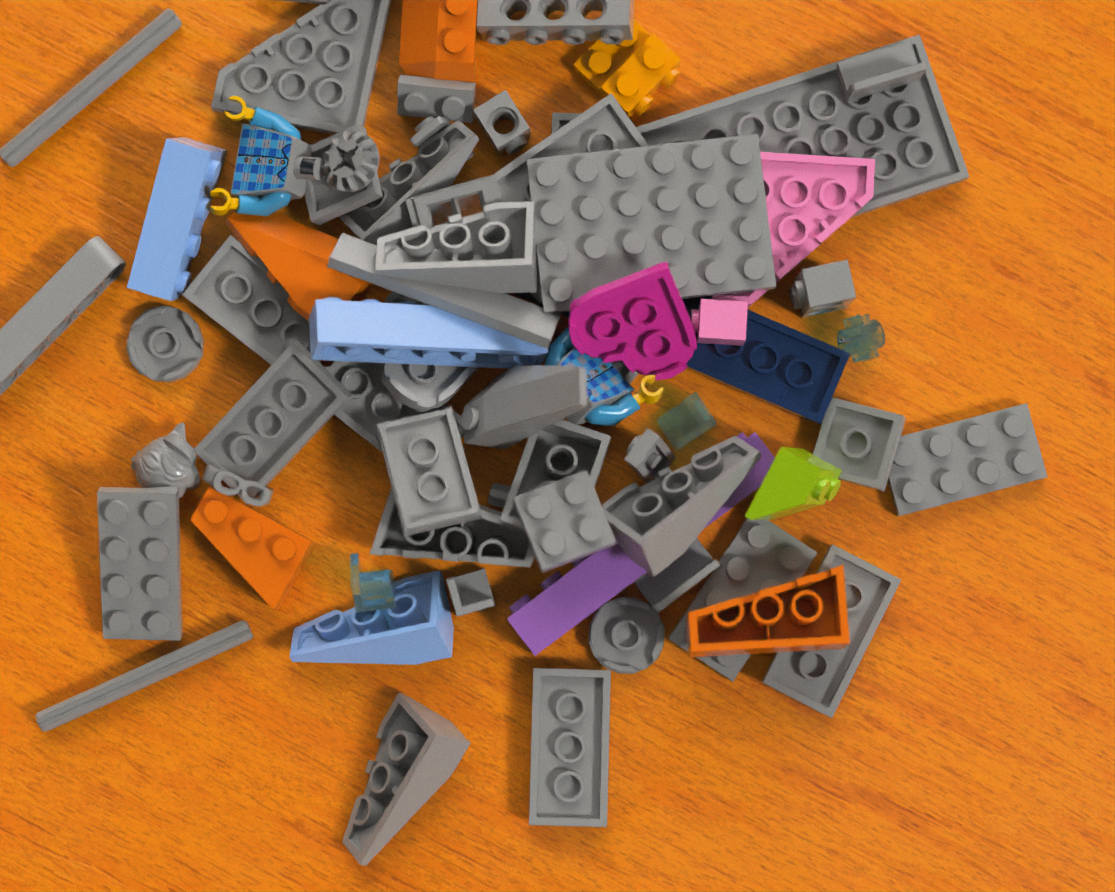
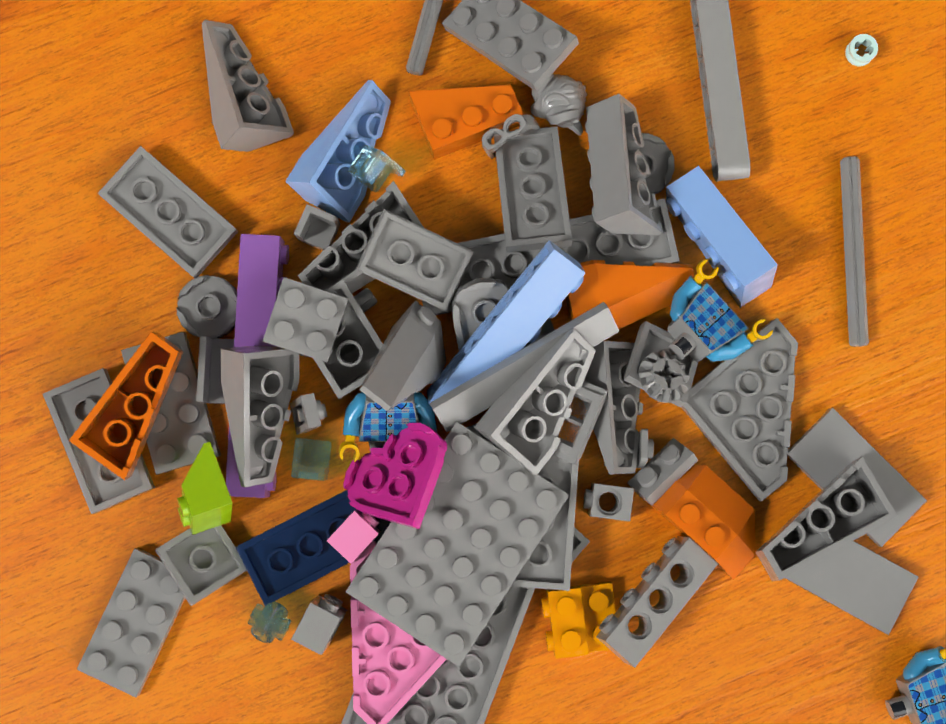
camera: 130 degrees right, 0 degrees up
(189, 357) = (619, 169): none -> light grey wedge

